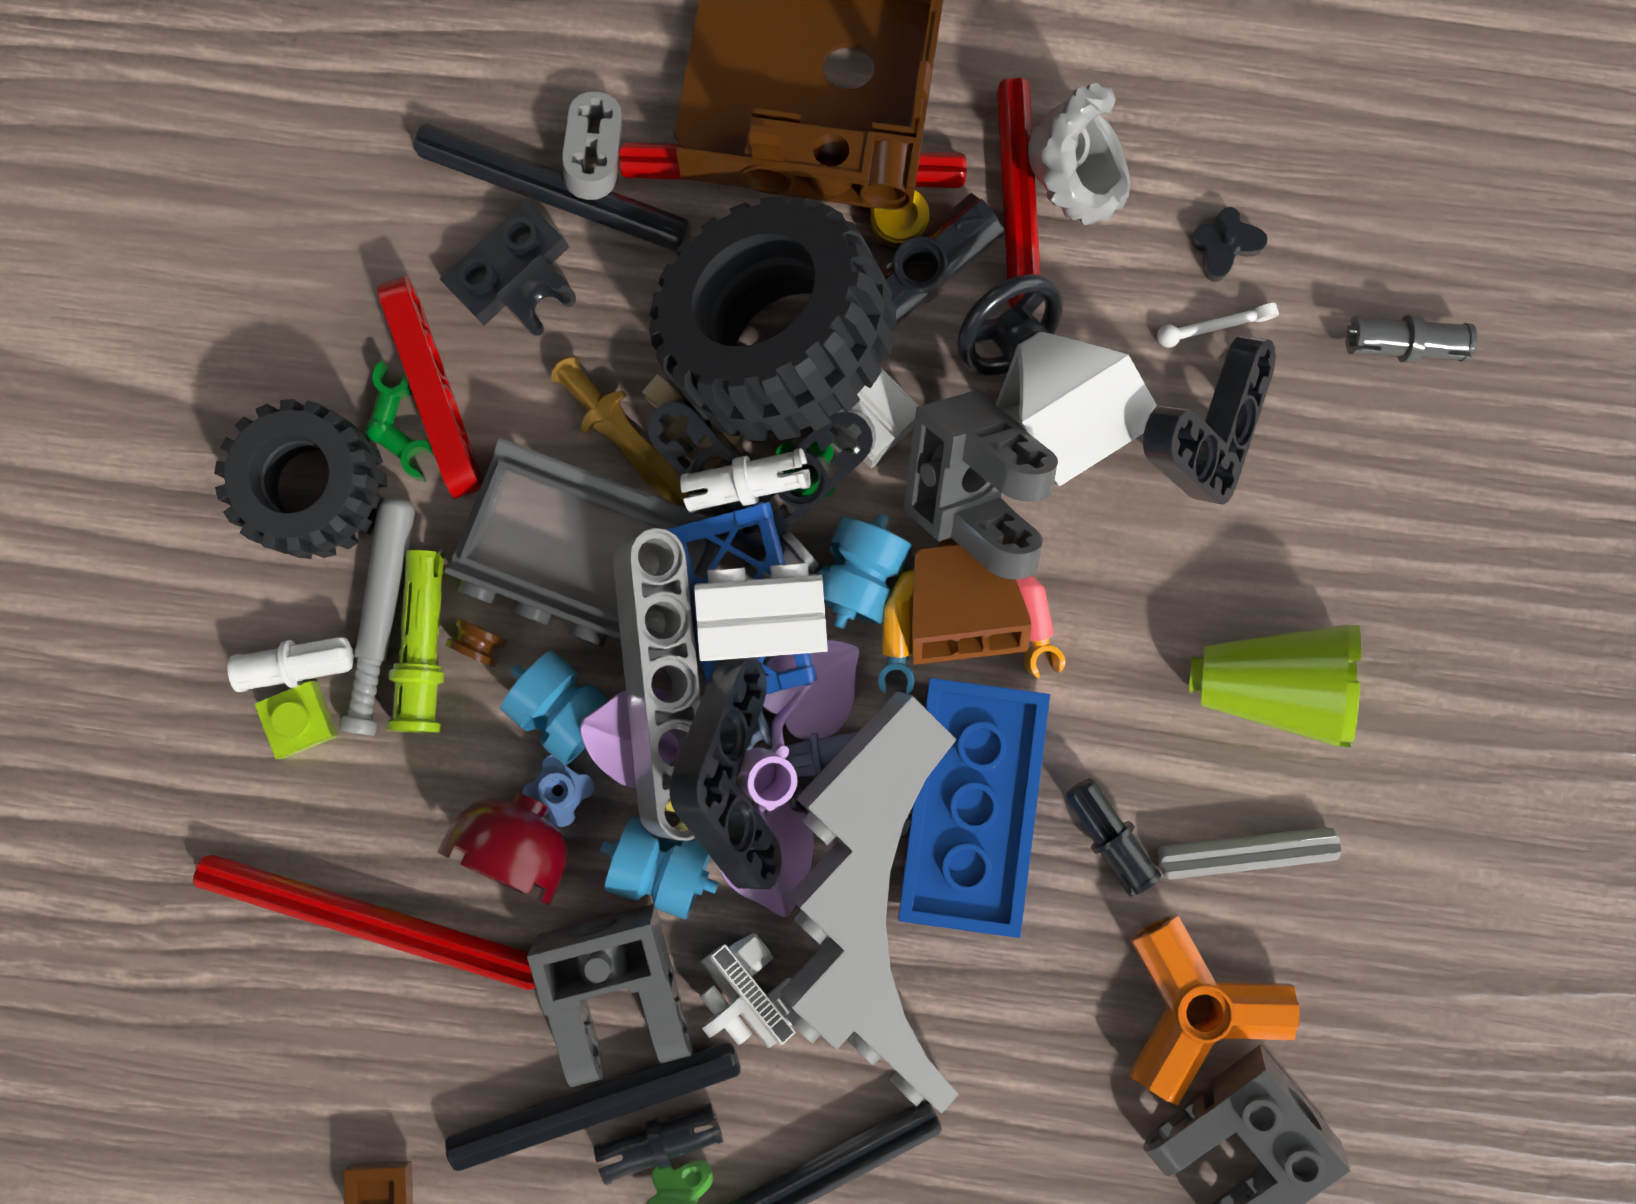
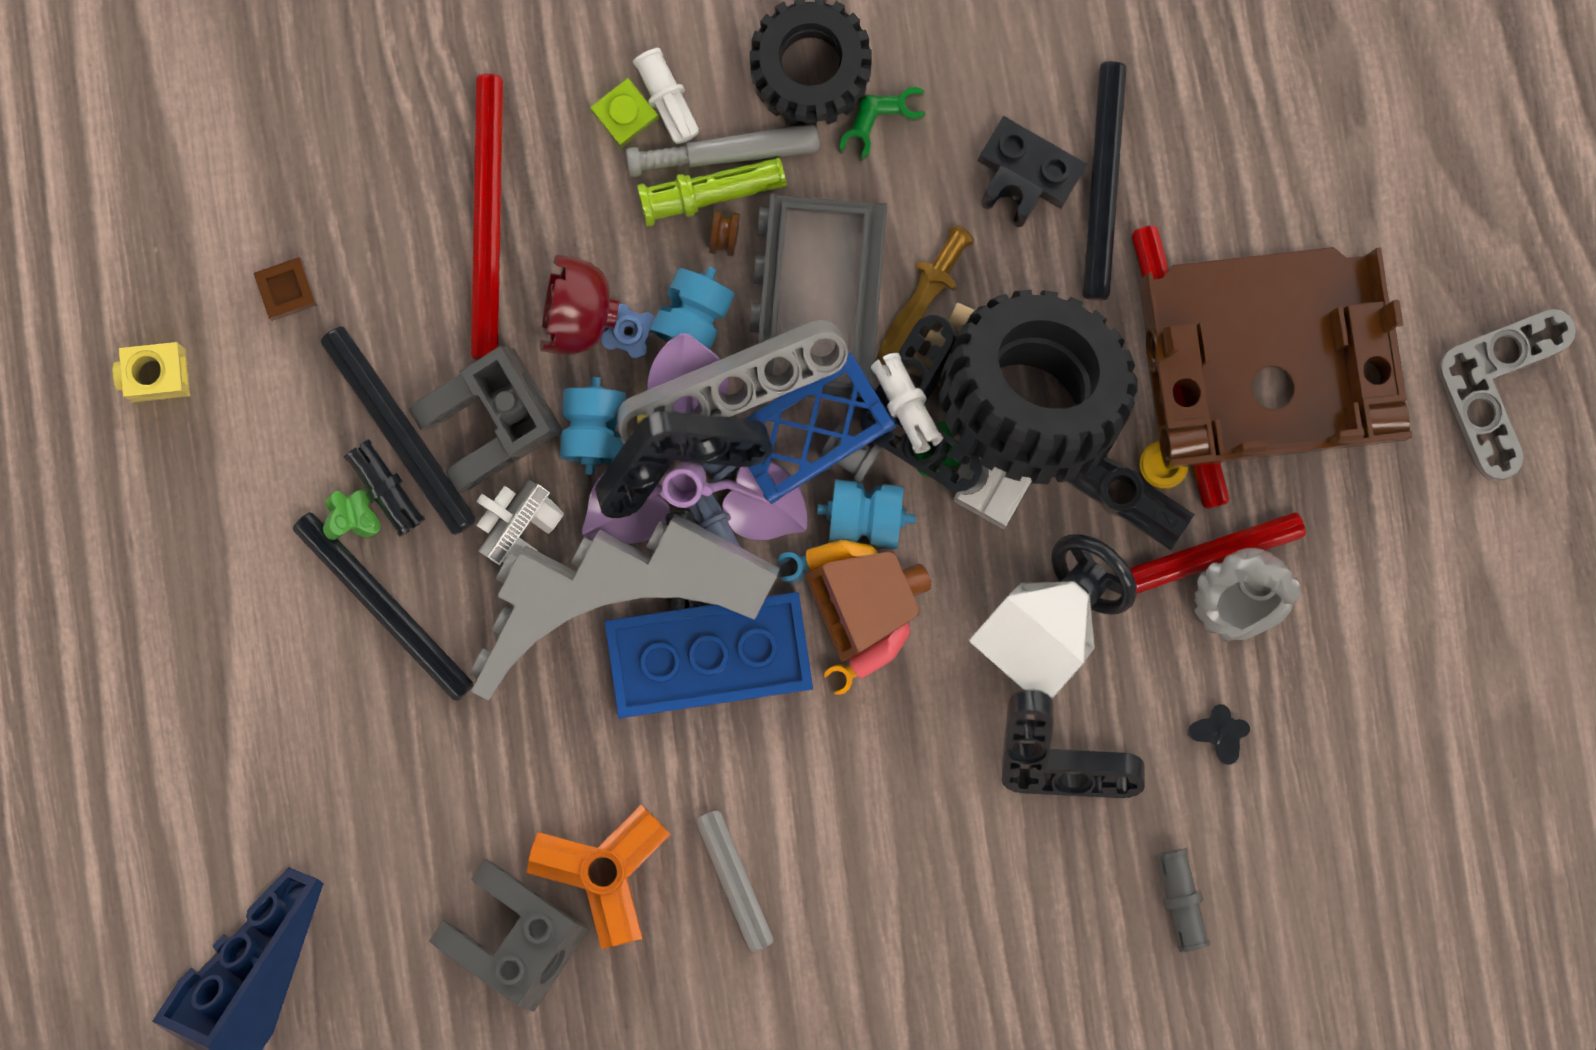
camera: 75 degrees right, 0 degrees up
(430, 387) = (914, 136): red beam -> none
(581, 144) = (1144, 193): light grey beam -> none
(760, 614) = (805, 443): white brick -> none
(960, 465) = (957, 577): dark grey brick -> none
(1113, 838) = (716, 769): black axle -> none
(1170, 335) = (1130, 707): white hinge -> none
(1286, 681) = (875, 869): lime cone -> none

